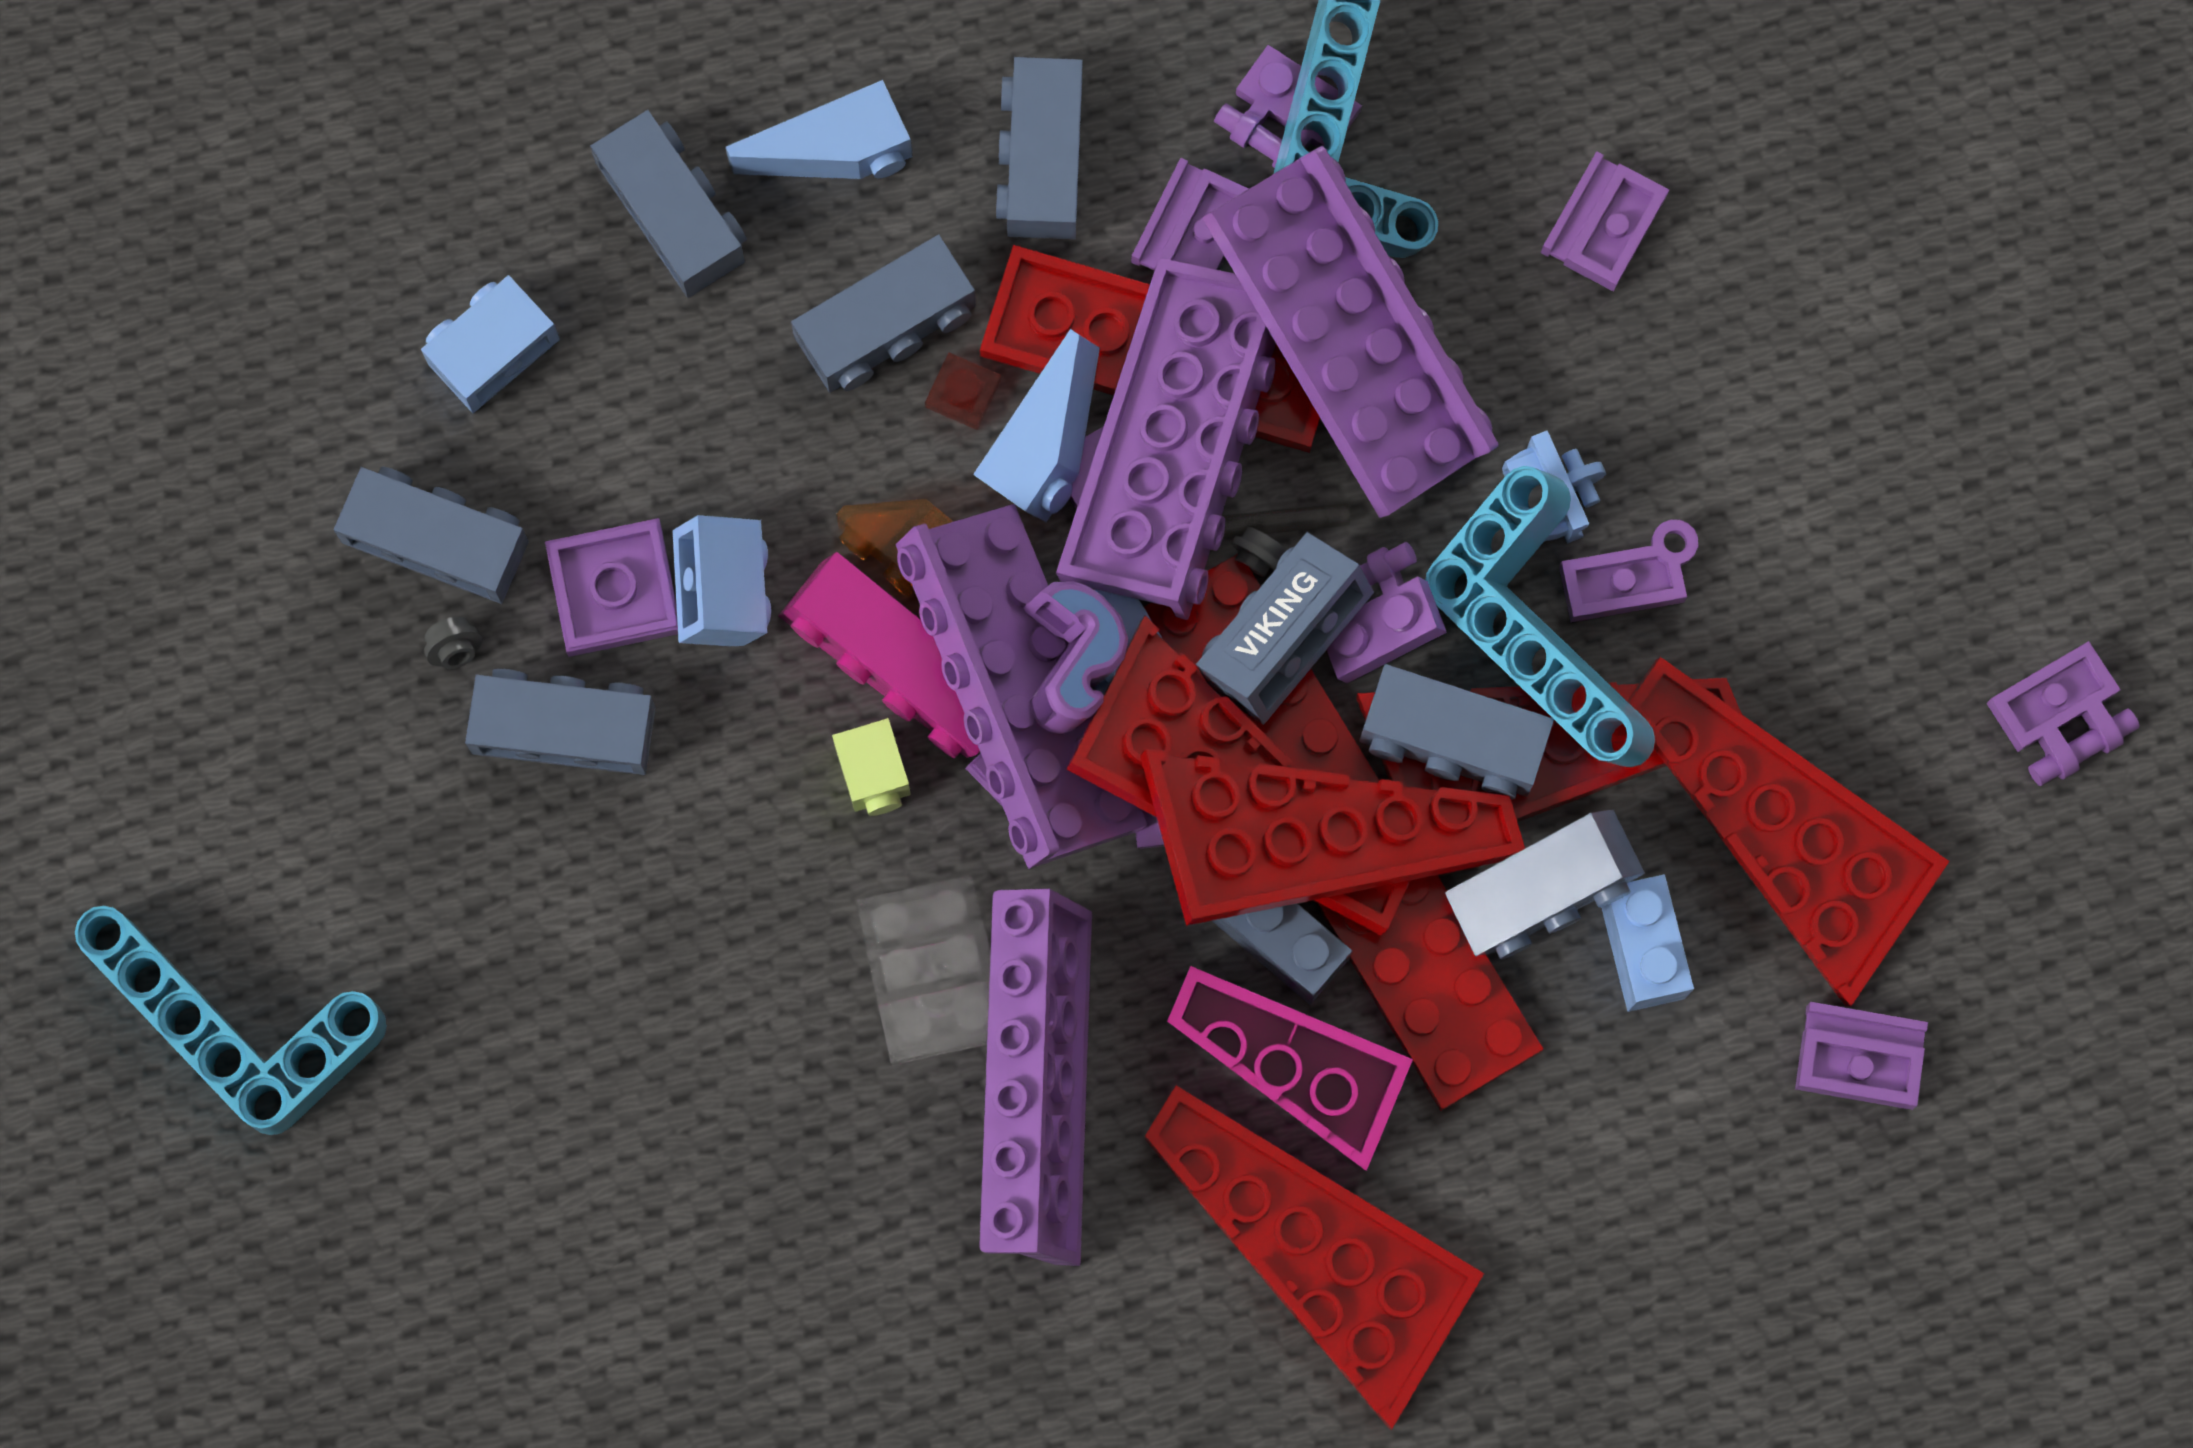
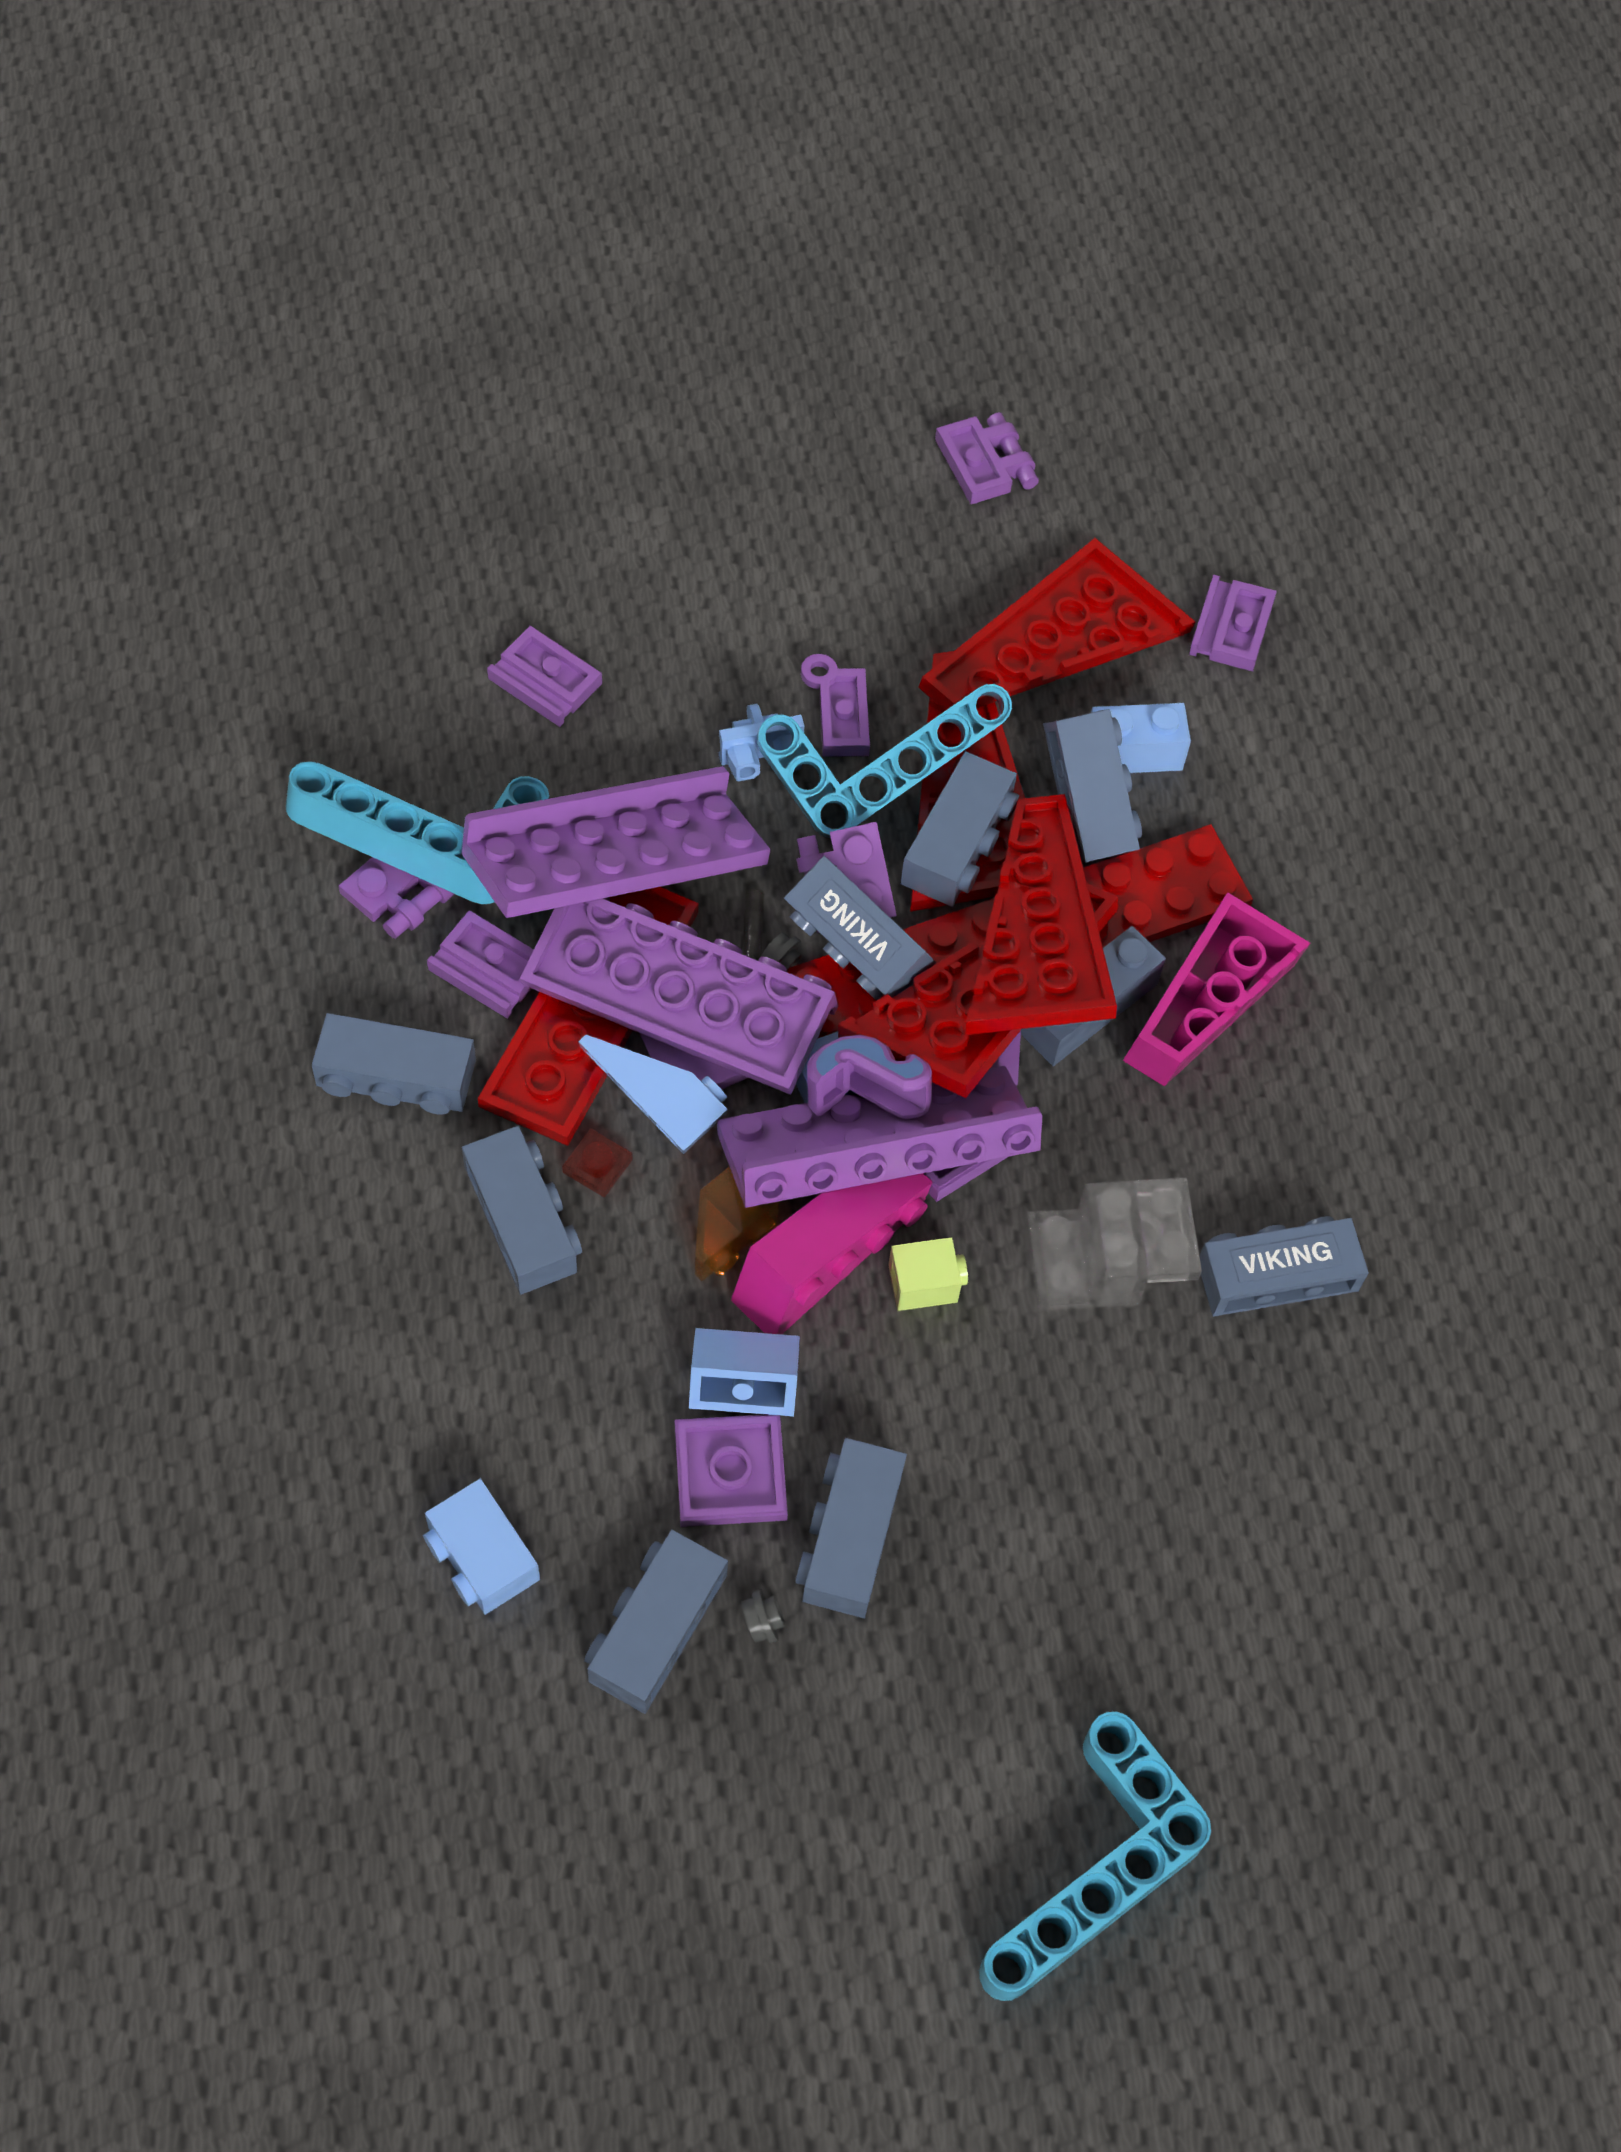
camera: 85 degrees left, 15 degrees down
(670, 202) = (378, 1373): sand blue brick -> none
(837, 140) = (351, 1224): light blue slope -> none
(939, 1165) = (1282, 1265): none -> sand blue brick
(1036, 1076) = (1221, 1167): medium lavender bracket -> none
(1343, 1268) = (1370, 990): red wing -> none

